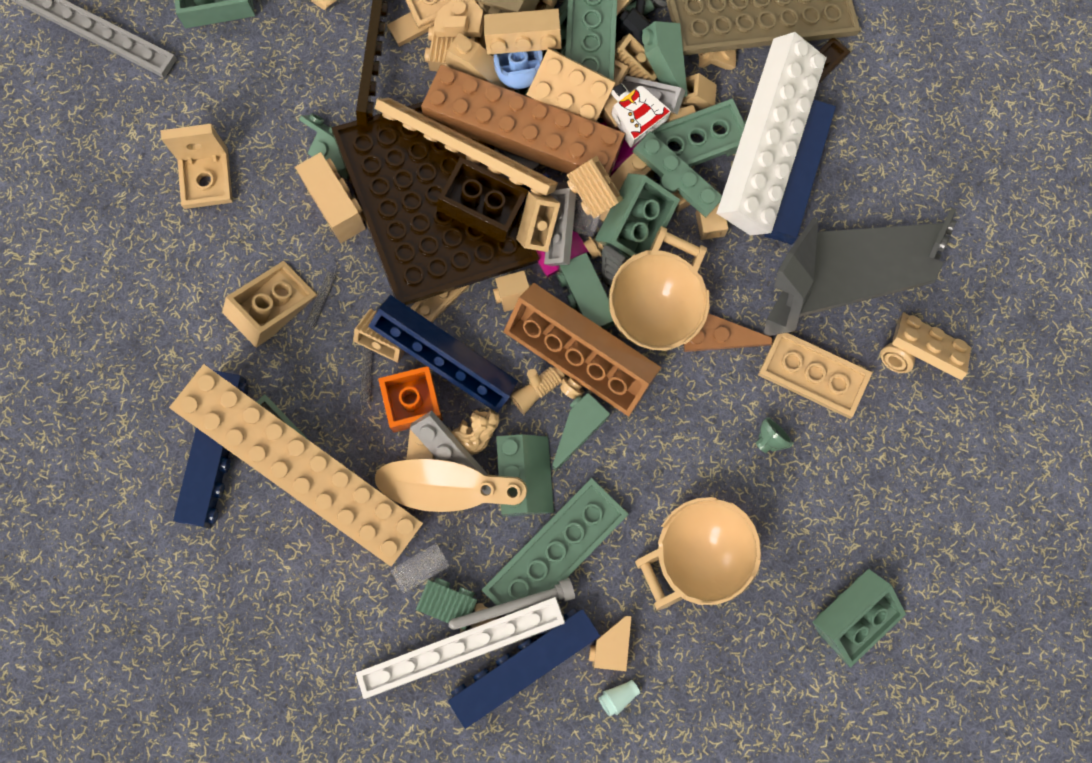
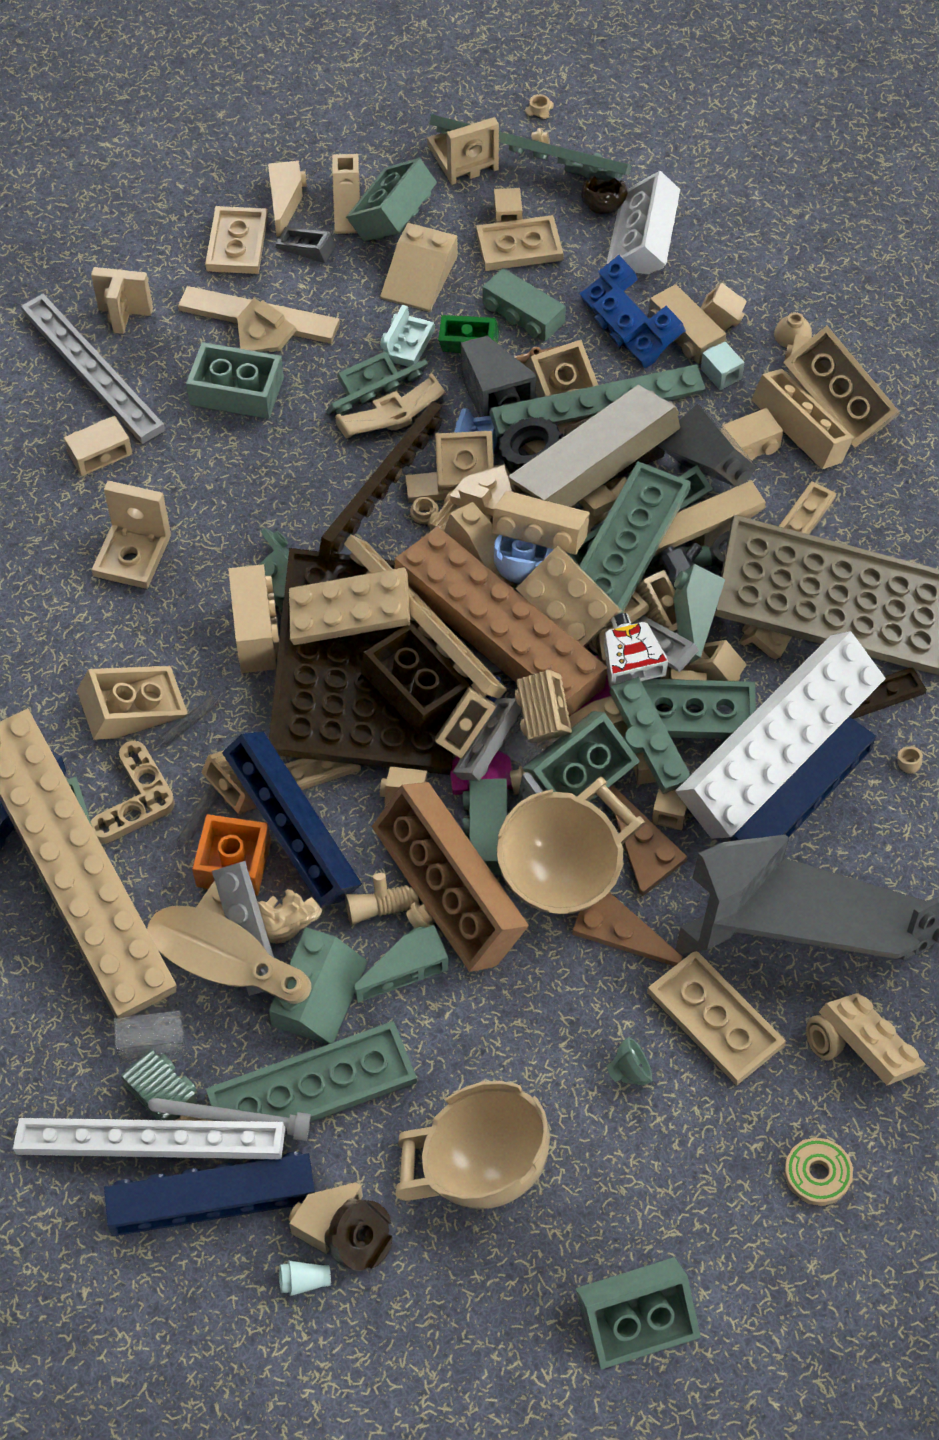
camera: 25 degrees right, 20 degrees down
(130, 94) = (98, 445): none -> tan brick
(318, 372) = (146, 792): none -> tan beam
(405, 161) = (349, 606): none -> tan plate
(410, 45) = (420, 504): none -> tan plate
(637, 661) = (343, 1230): none -> dark brown plate
(716, 265) = (649, 850): none -> medium nougat wing
(859, 110) = (910, 759): none -> tan hinge
(943, 447) = (814, 1190): none -> tan tile

